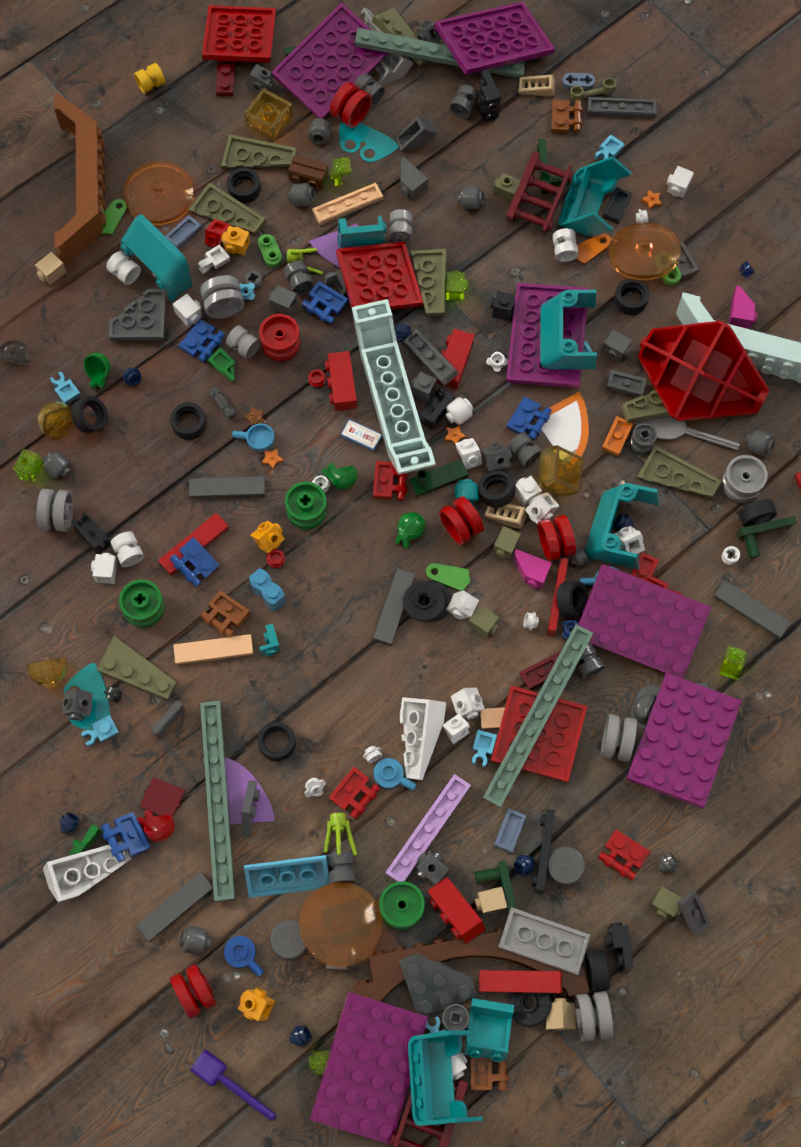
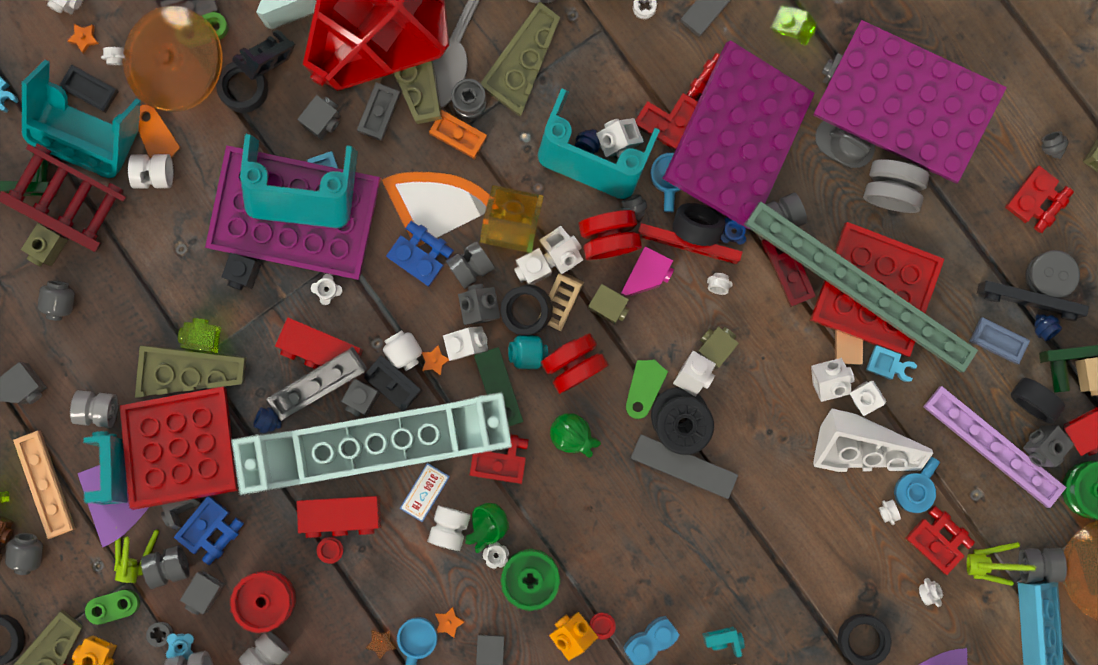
camera: 85 degrees left, 15 degrees up
(337, 450) = (449, 528): none -> white wheel
(466, 855) = (1037, 400): none -> black tyre
(654, 307) = (264, 56): none -> black hinge

